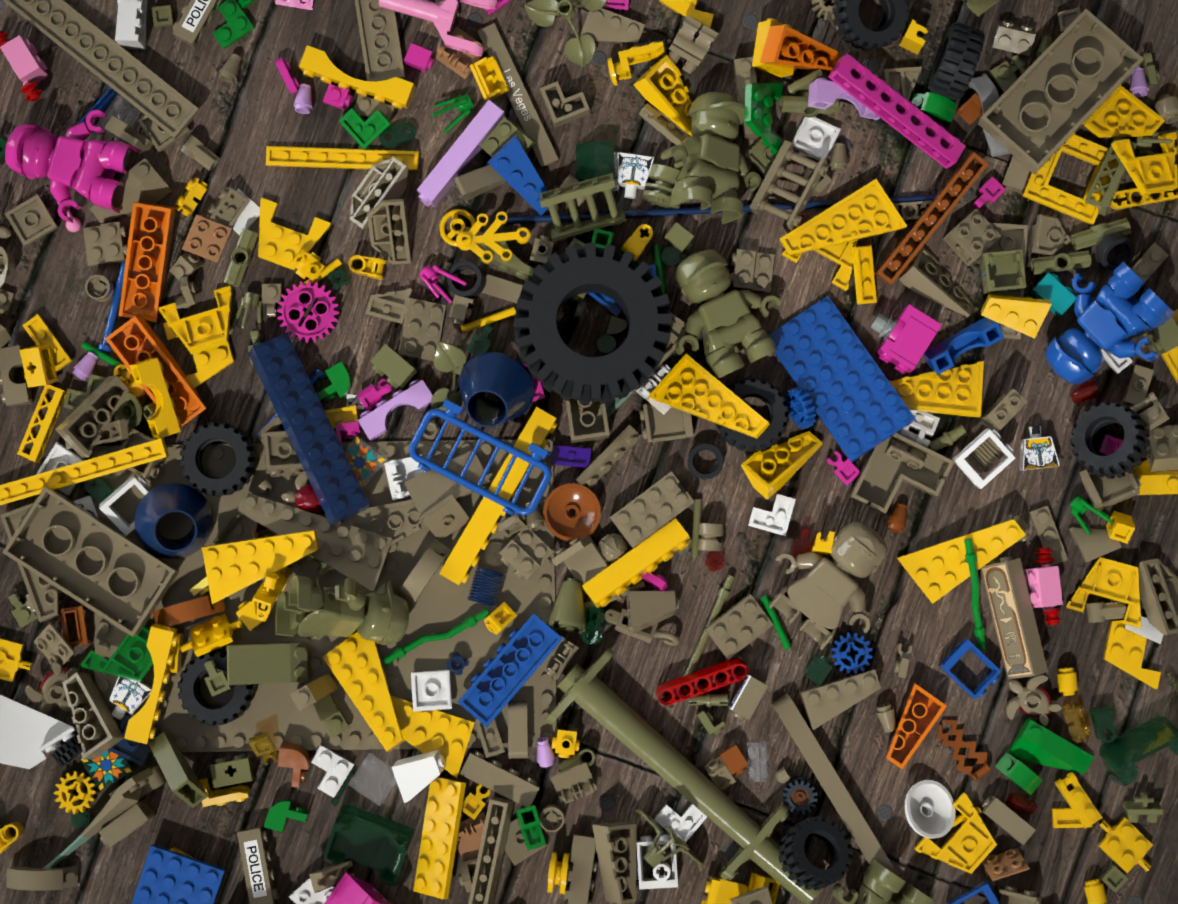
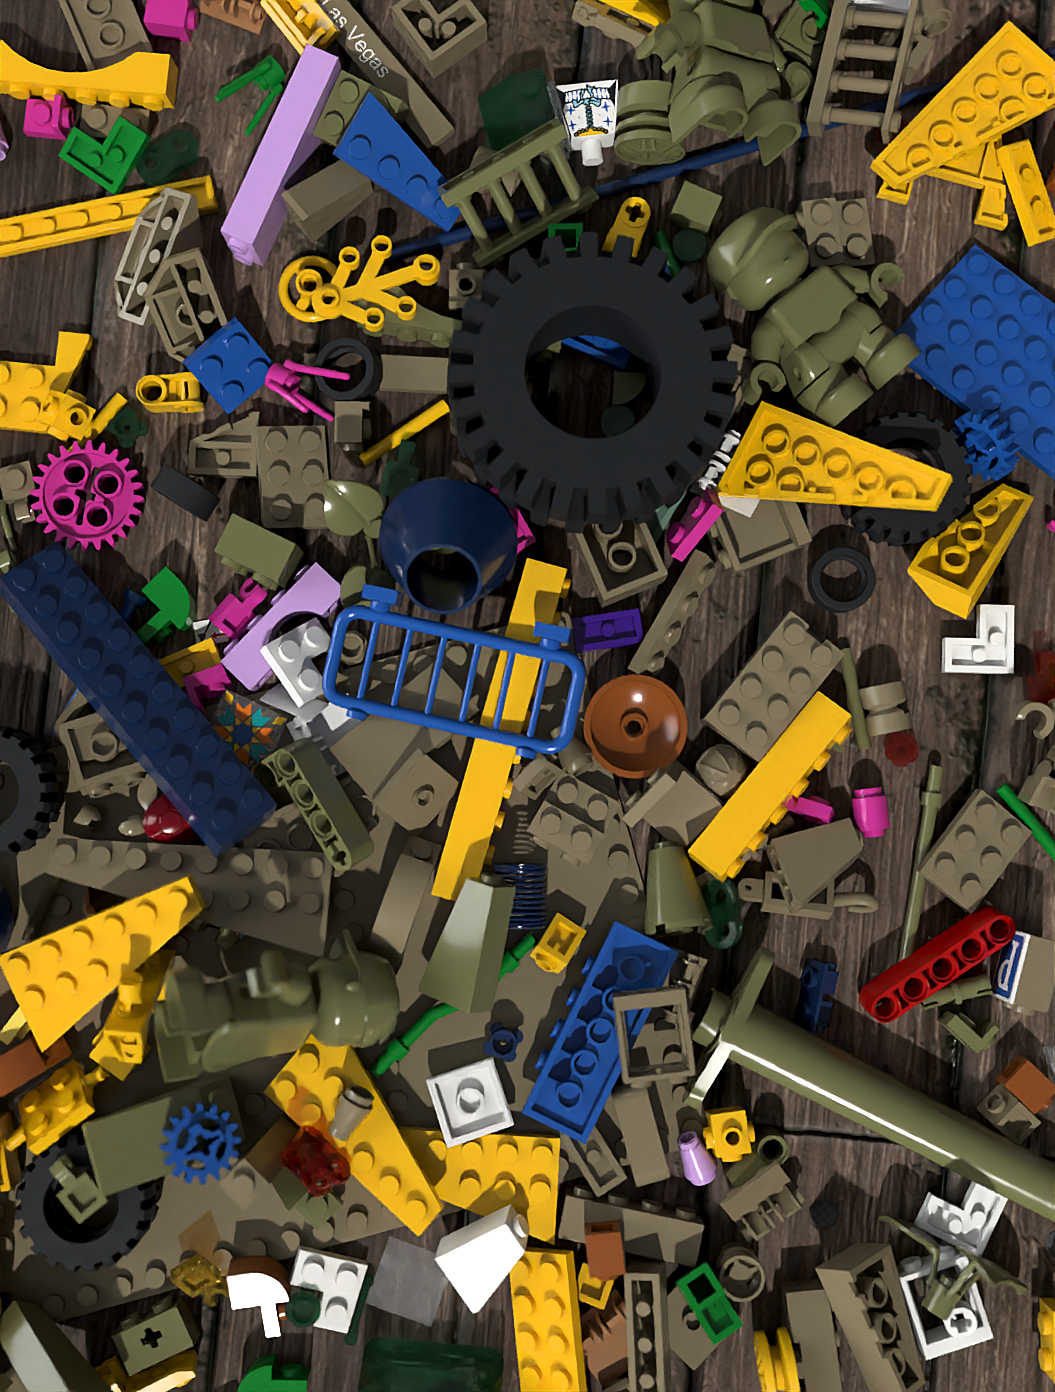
camera: 20 degrees left, 0 degrees up
(286, 679) = (184, 1150): none -> blue gear
(314, 777) = (303, 1309): none -> clear green plate
(341, 697) = (311, 1161): none -> clear red piece
(361, 324) = (185, 492): none -> black tyre
(367, 676) = (351, 1110): none -> dark tan cone
(391, 452) = (280, 698): none -> white sticker
(392, 508) = (320, 801): none -> olive beam
(397, 428) = (292, 660): none -> white plate
(403, 260) = (229, 365): none -> blue plate
(453, 606) = (472, 946): none -> olive slope
(482, 785) = (604, 1250): none -> dark orange brick
(539, 657) = (653, 997): none -> dark tan window
(628, 689) = (816, 980): none -> dark blue hinge
(632, 411) = (694, 524): none -> dark pink plate
(688, 591) = (870, 811): none -> dark pink brick

